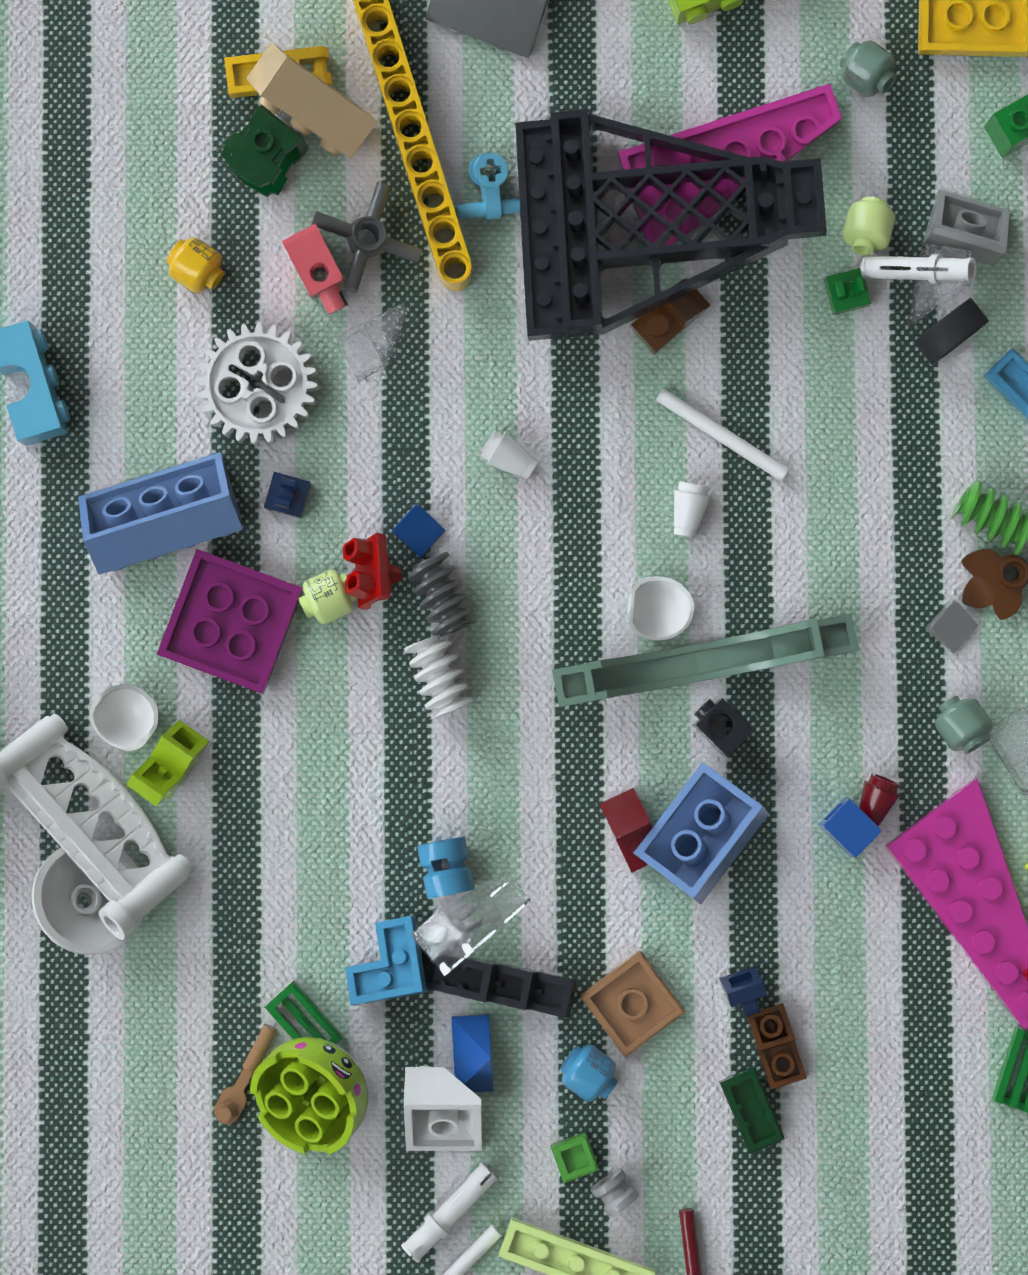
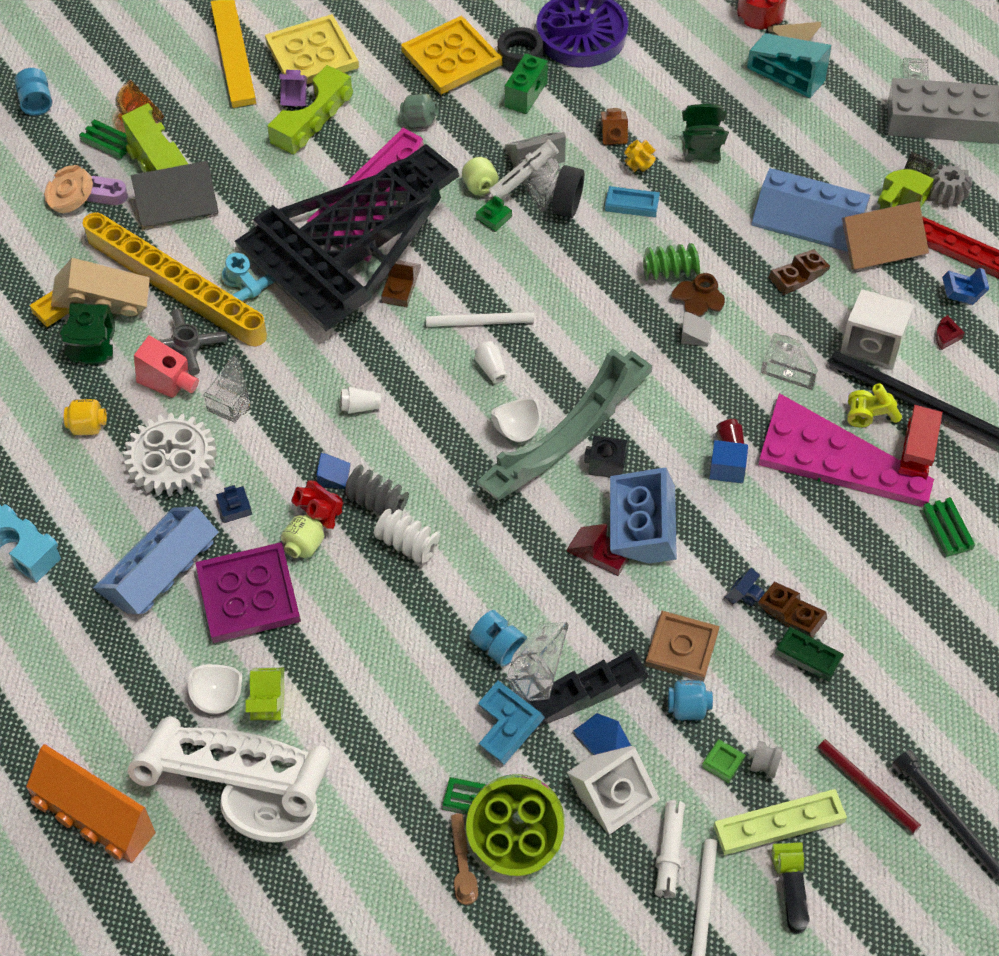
camera: 35 degrees left, 30 degrees down
(963, 724) = (746, 368): sand green head -> none

